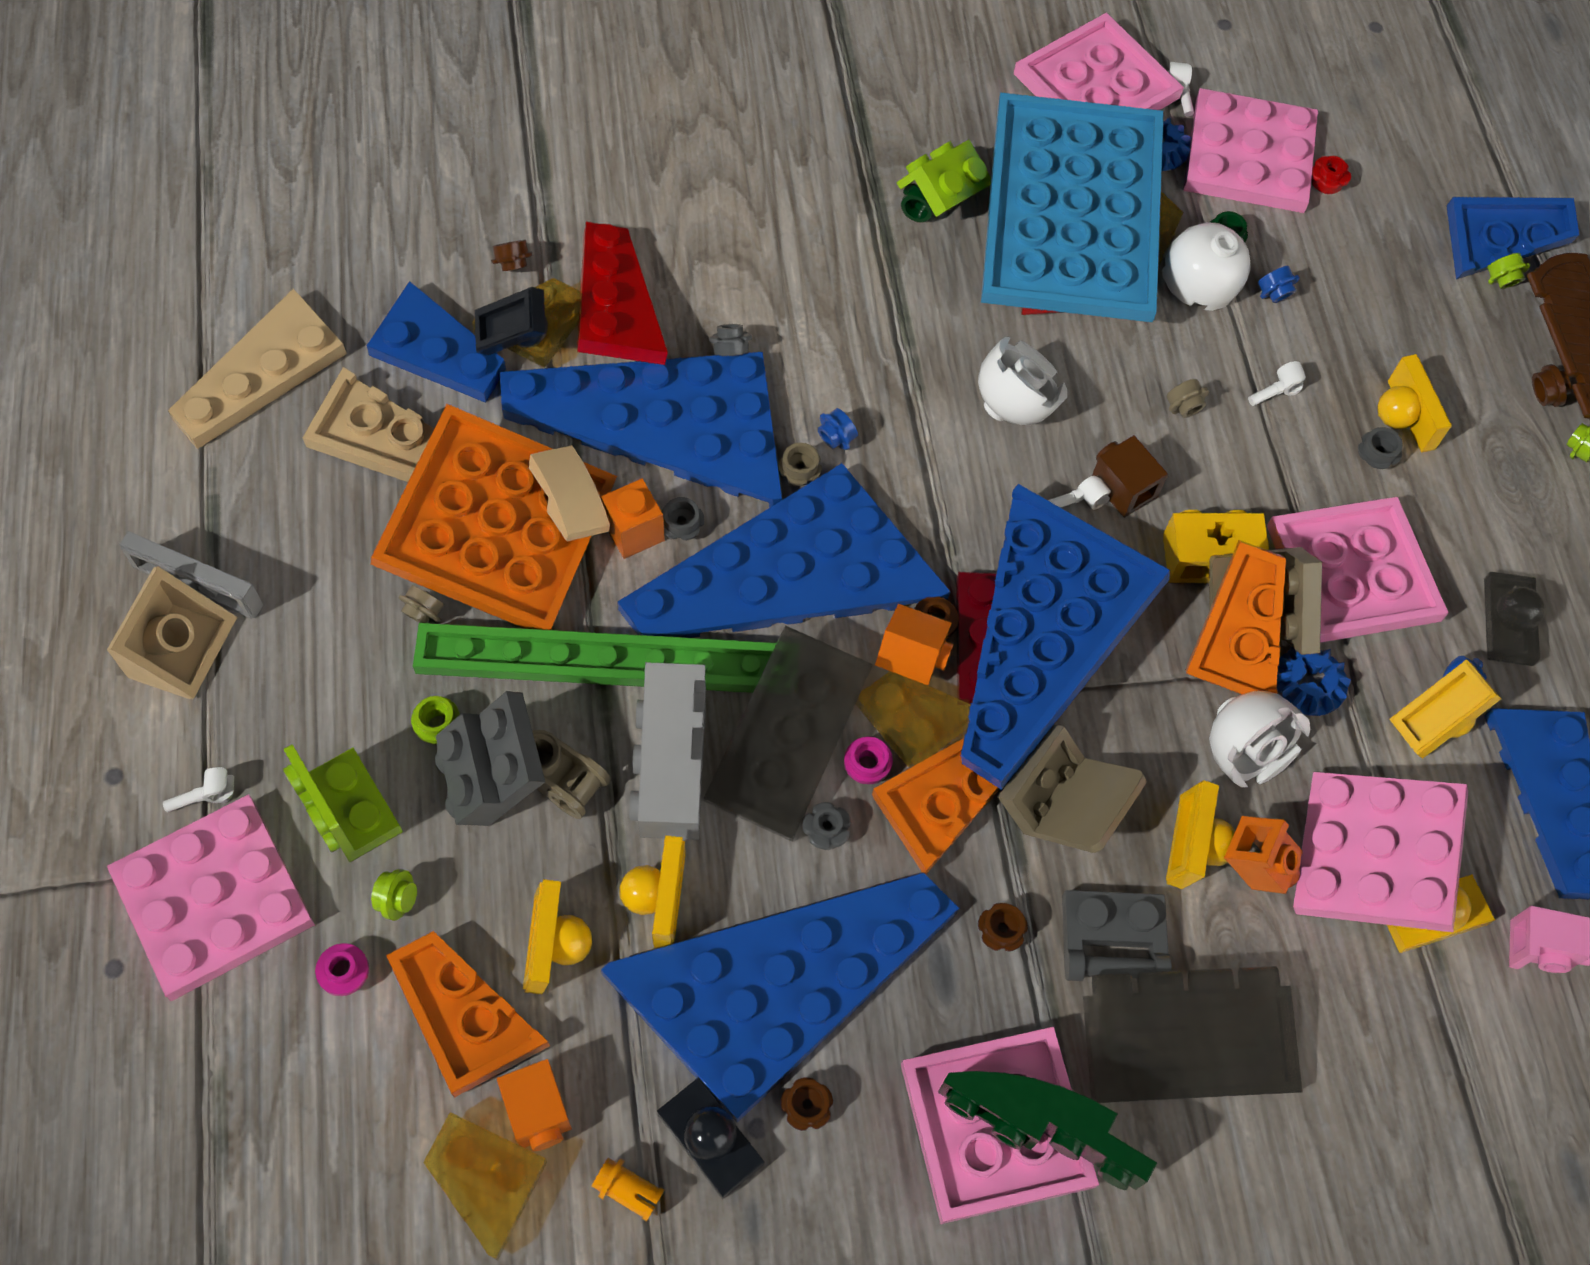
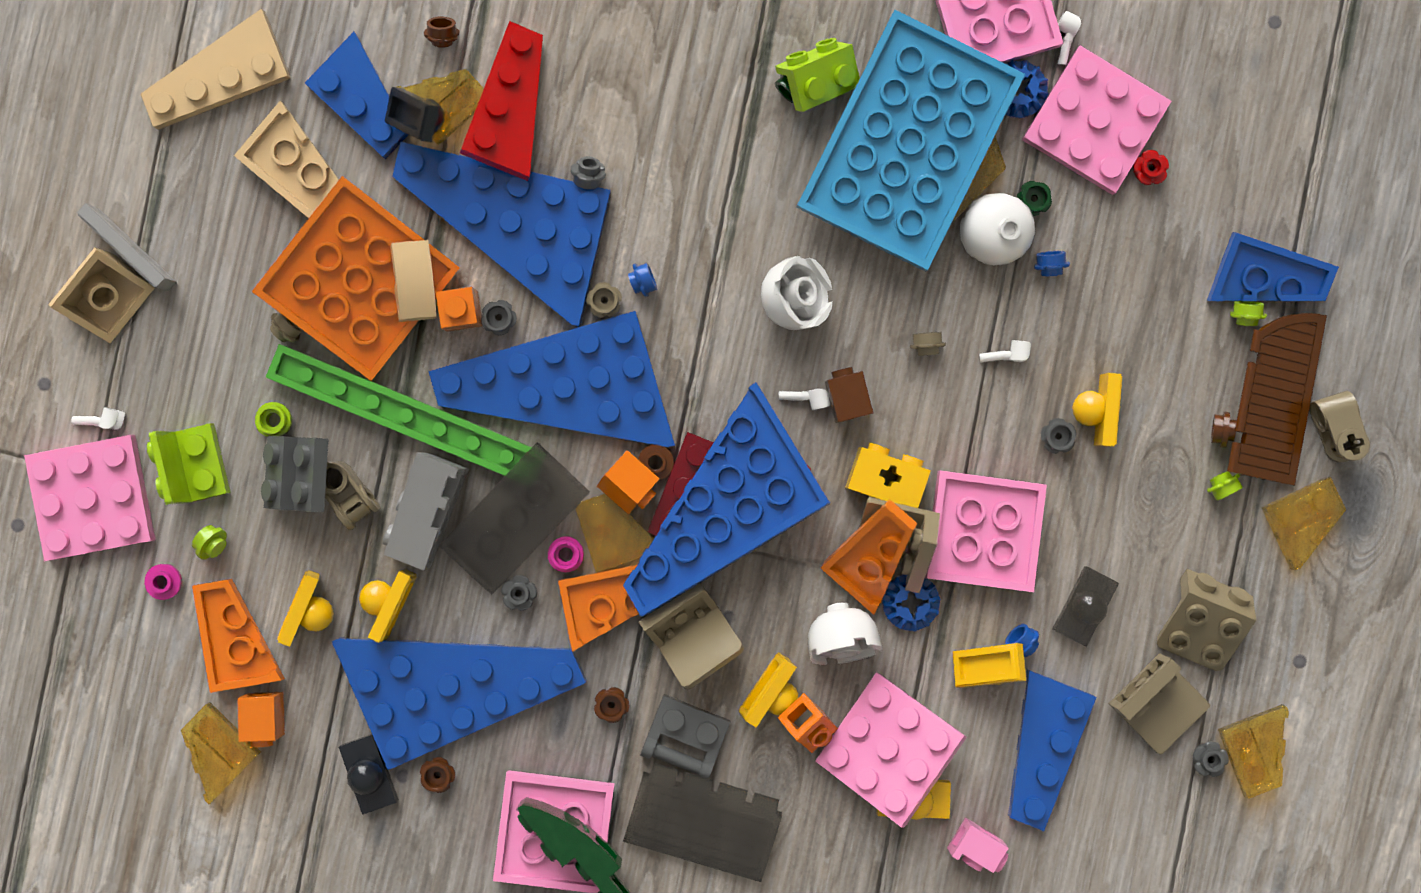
camera: 20 degrees right, 25 degrees up
(624, 1185) = (305, 788): light orange pin -> none

